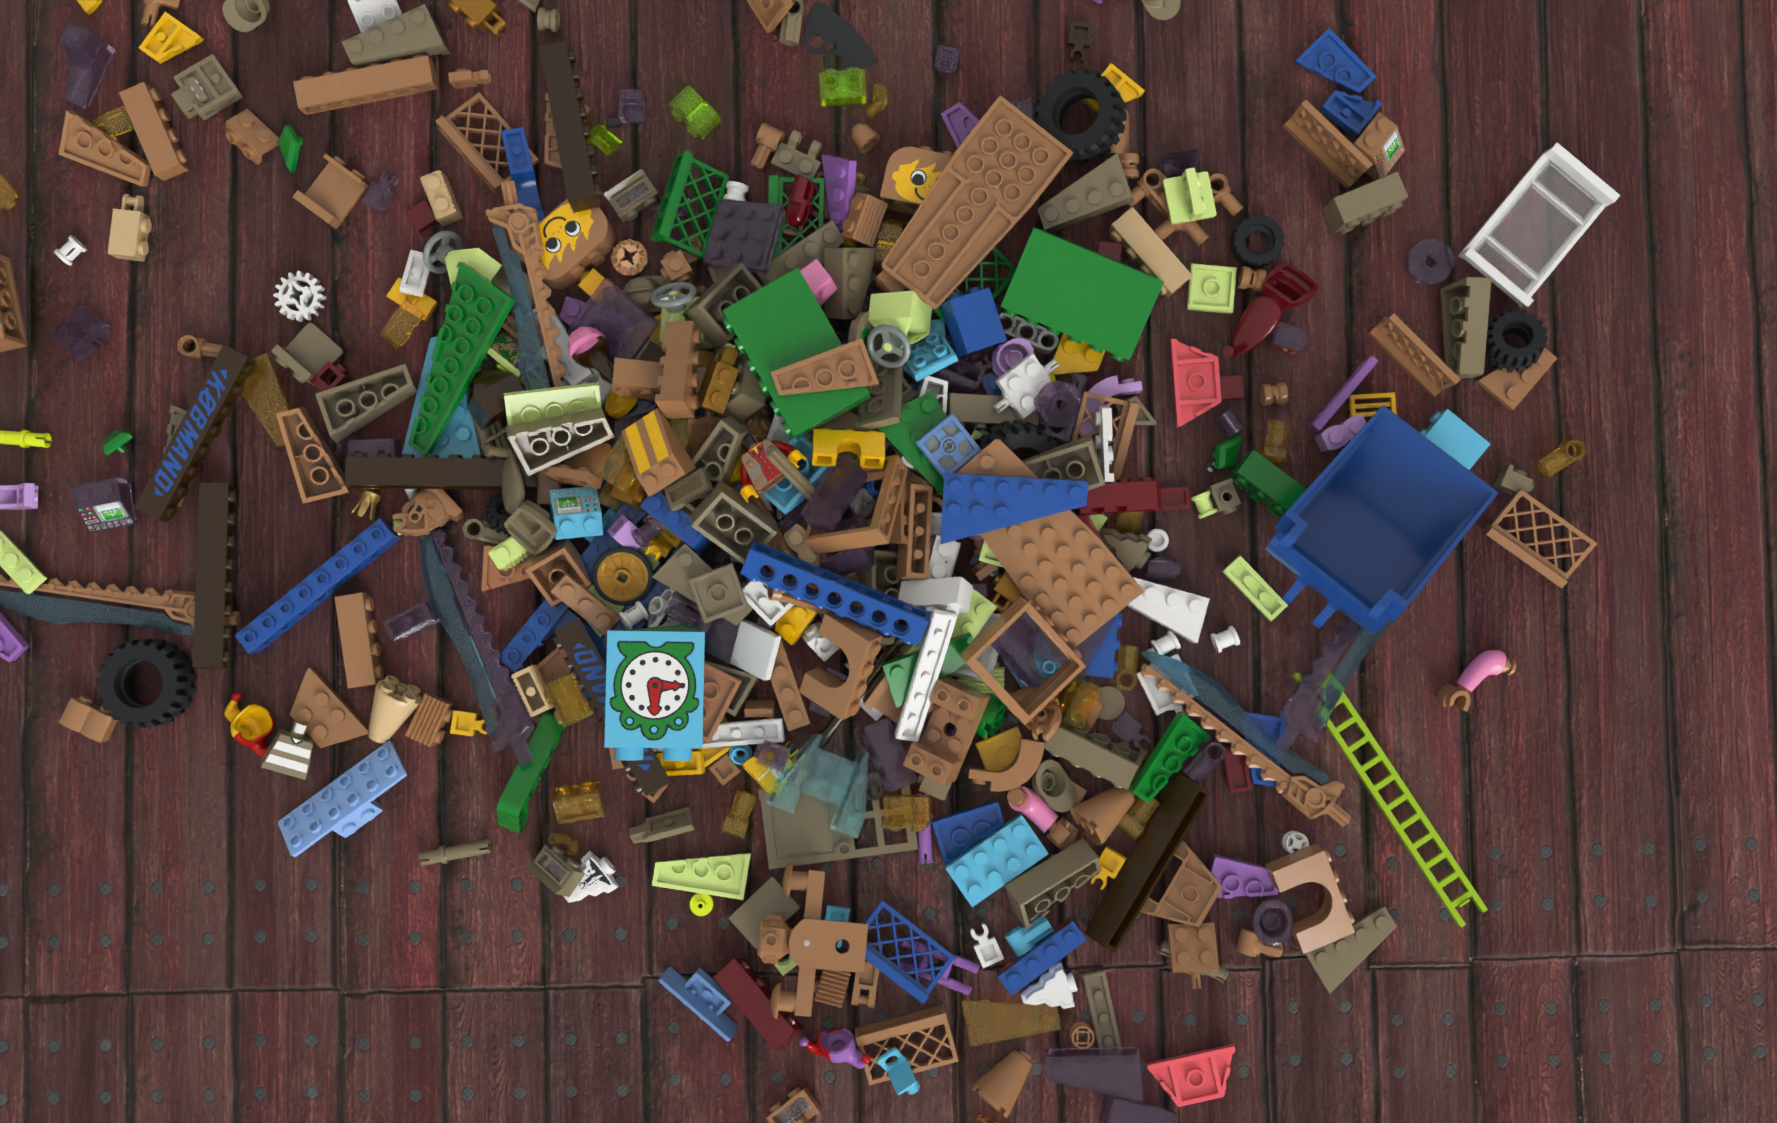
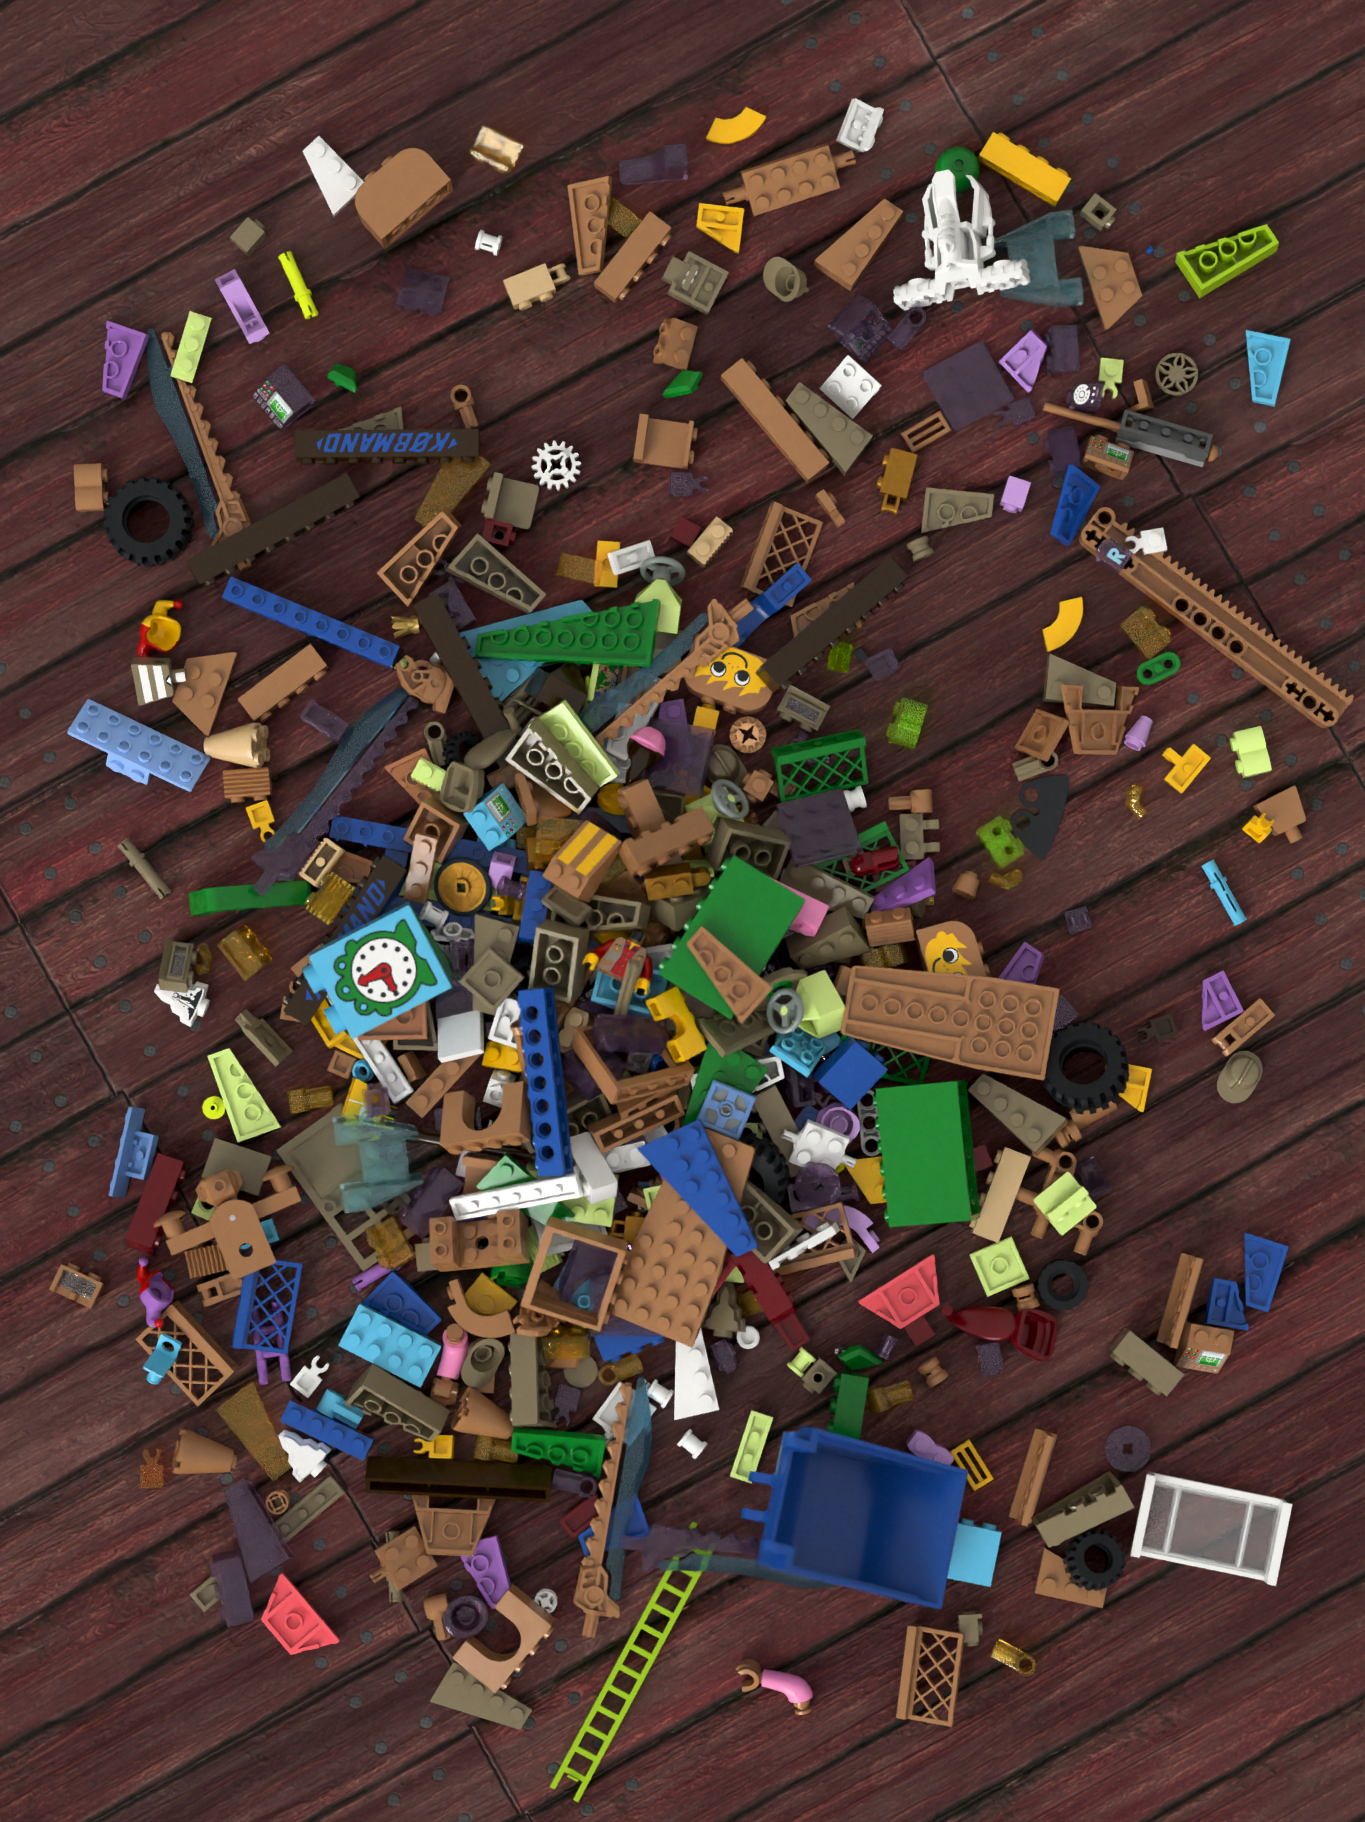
camera: 60 degrees right, 0 degrees up
(1343, 393) = (965, 1433): medium lavender tile -> none

